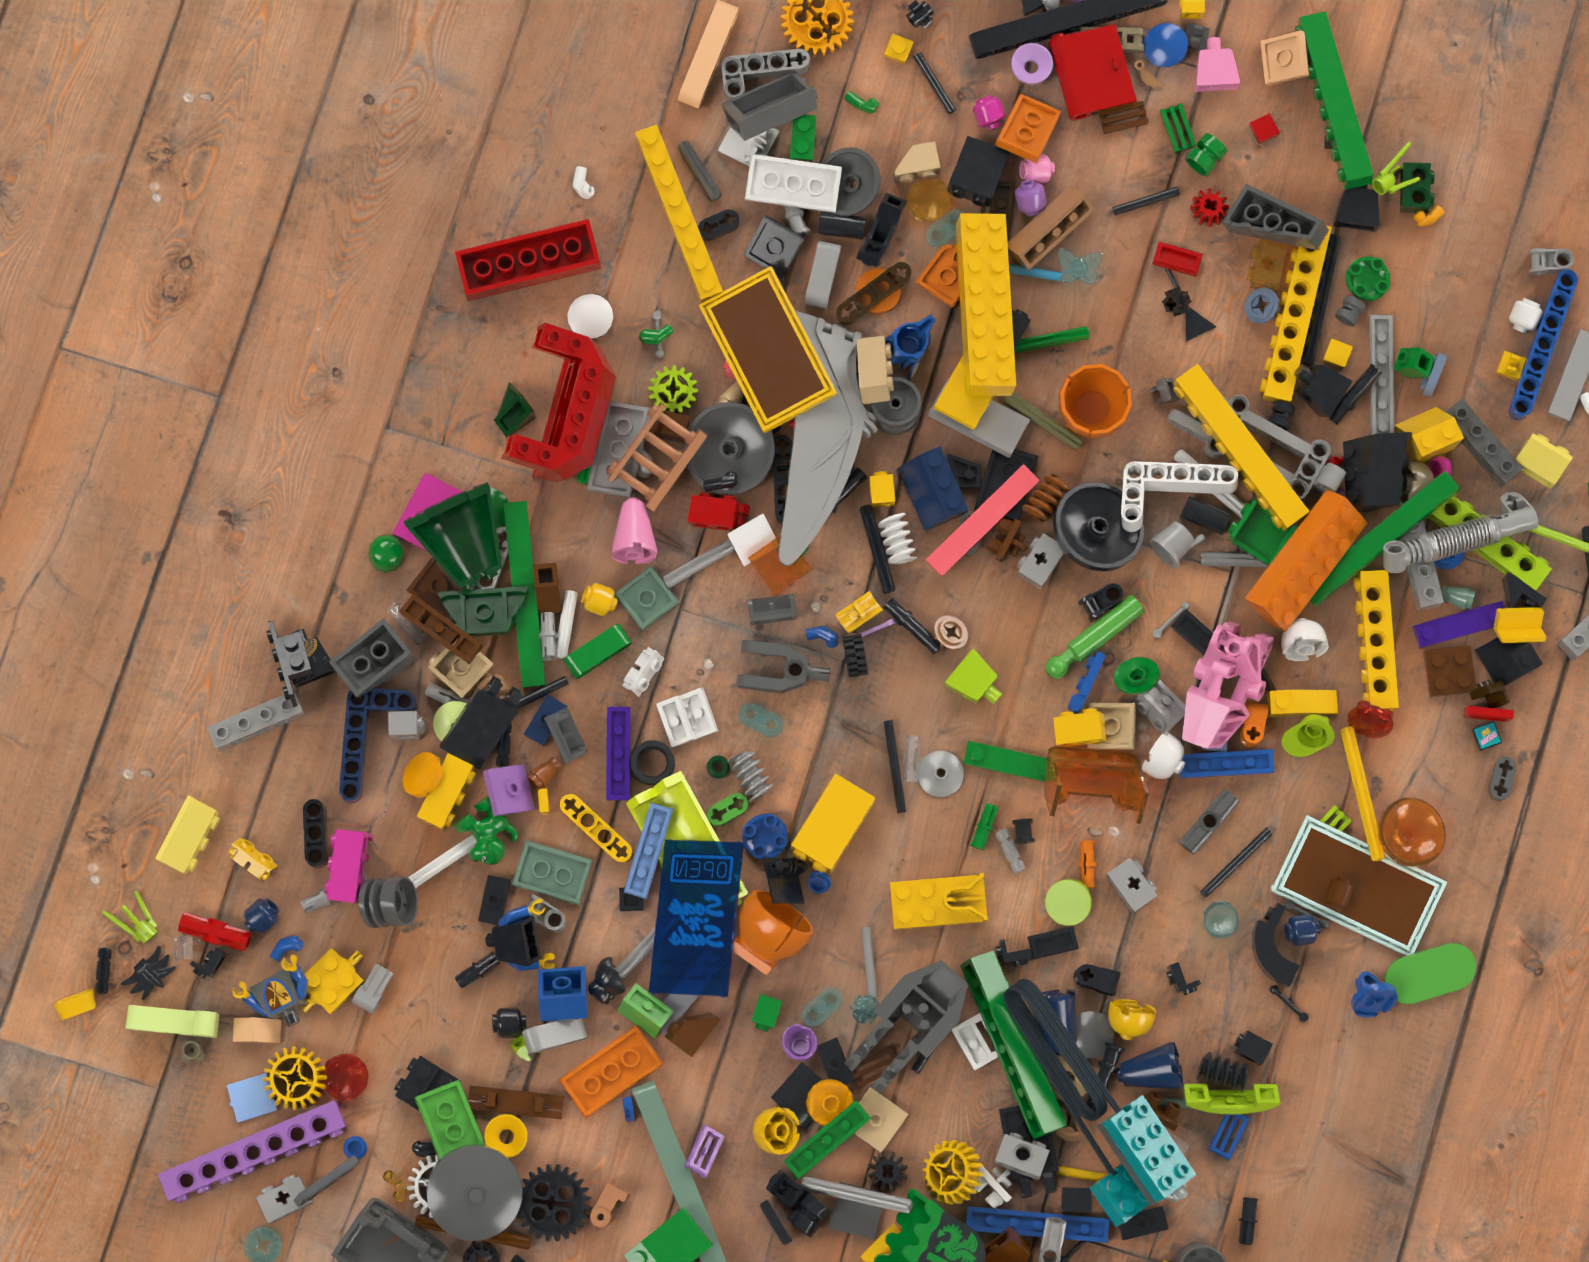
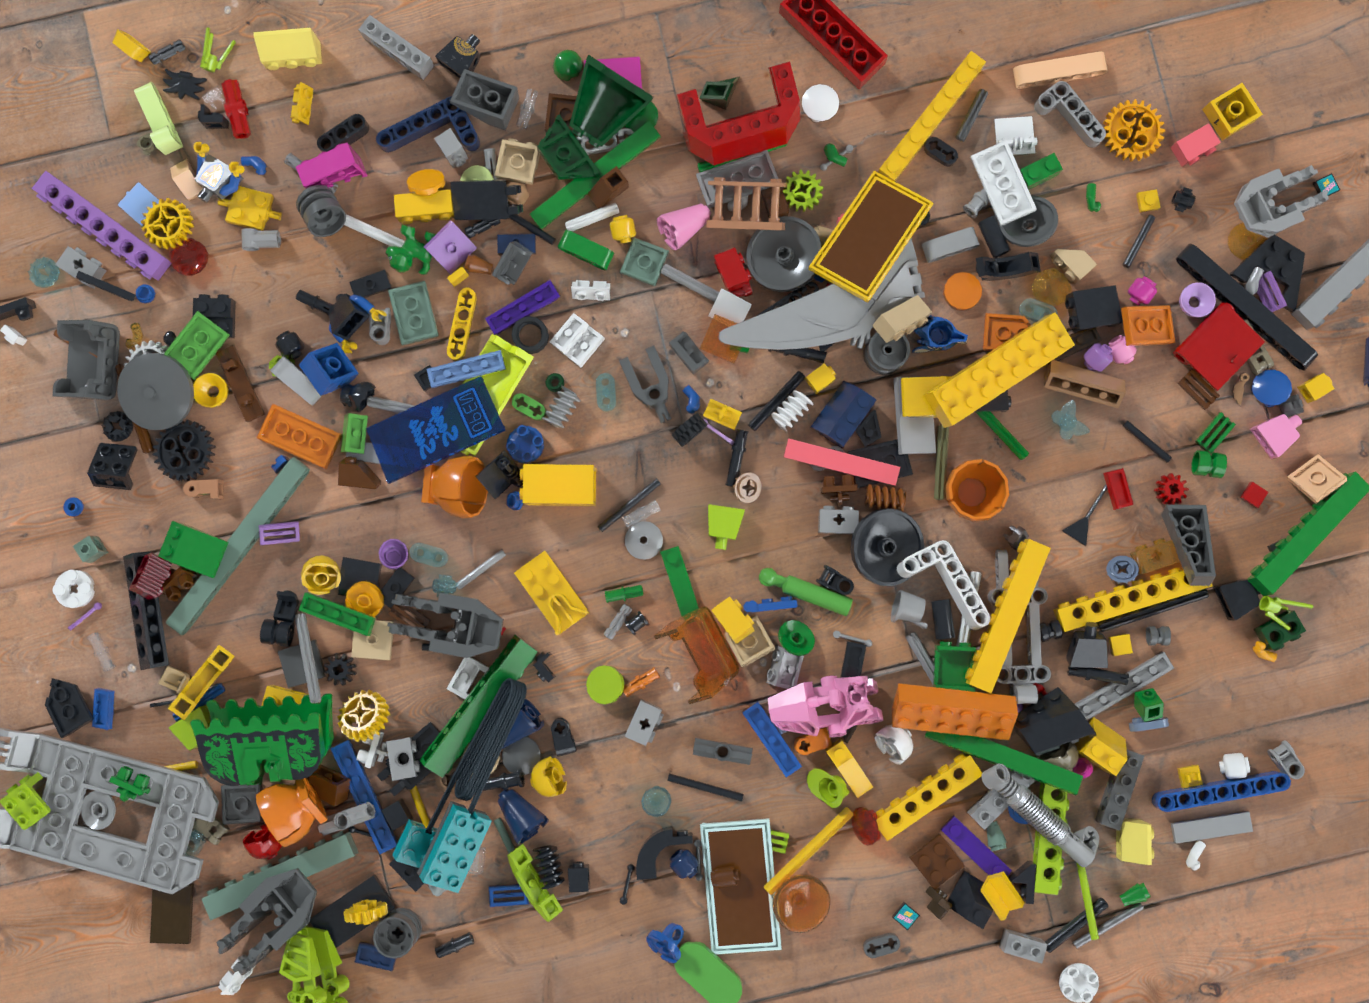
camera: 70 degrees right, 5 degrees up
(261, 915) = (265, 133): dark blue head -> none
(292, 657) = (449, 42): bracket -> none
(441, 629) = (532, 130): reddish brown hinge -> none
(548, 636) = (575, 209): light grey pin -> none
(580, 185) = (910, 38): white arm -> none
(729, 481) = (756, 263): black arm -> none
(766, 1012) = (400, 518): green brick -> none
(770, 105) = (1050, 132): dark grey piece -> none
(774, 246) = (949, 198): tile -> none
(775, 1222) = (256, 612): black tile -> none
(871, 290) = (958, 290): dark brown beam -> none
(1034, 272) = (1044, 392): dark azure piece -> none
(1053, 942) = (570, 690): black plate -> none
(1165, 757) = (748, 693): white cylinder -> none
(1167, 1115) = (491, 841): reddish brown hips -> none
(1176, 301) = (1087, 506): black gear -> none
(1176, 977) = (596, 792): black bracket -> none
(1368, 278) = (1190, 634): green dish -> none
(1488, 713) = (922, 908): red tile -> none

